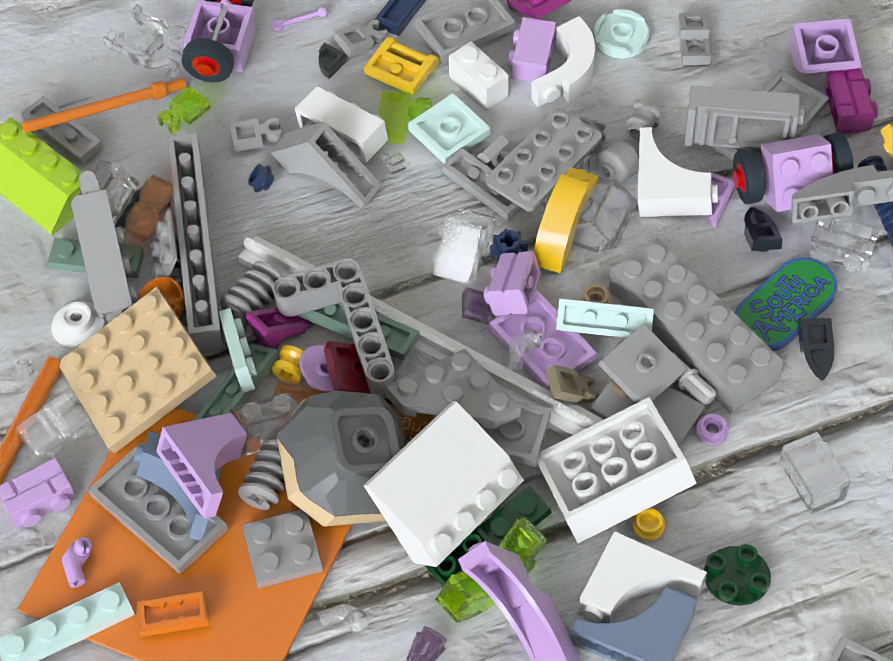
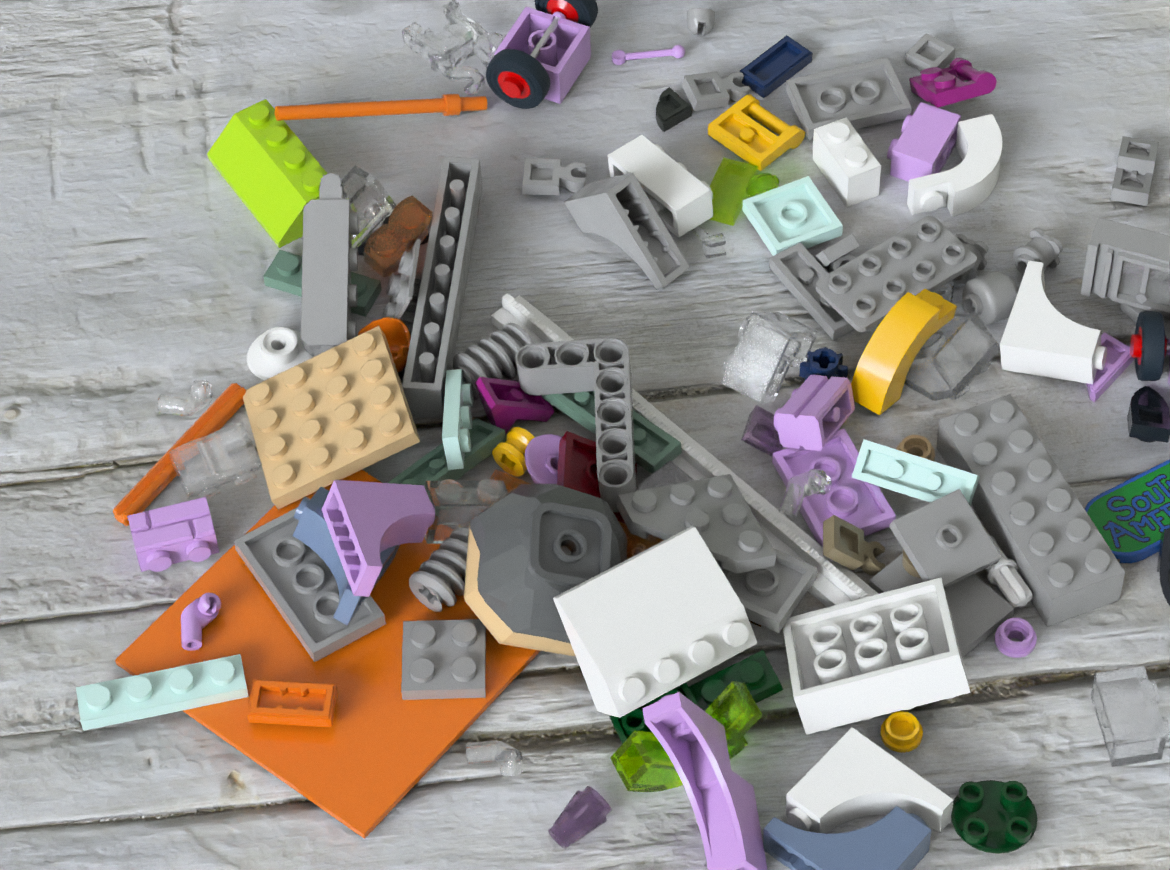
camera: 15 degrees right, 5 degrees down
(68, 136) = (328, 135): light grey plate -> none
(184, 107) = (477, 130): clear neon green plate -> none
(261, 178) = (545, 230): dark blue plate -> none
(621, 34) = (1043, 147): light aqua tile -> none

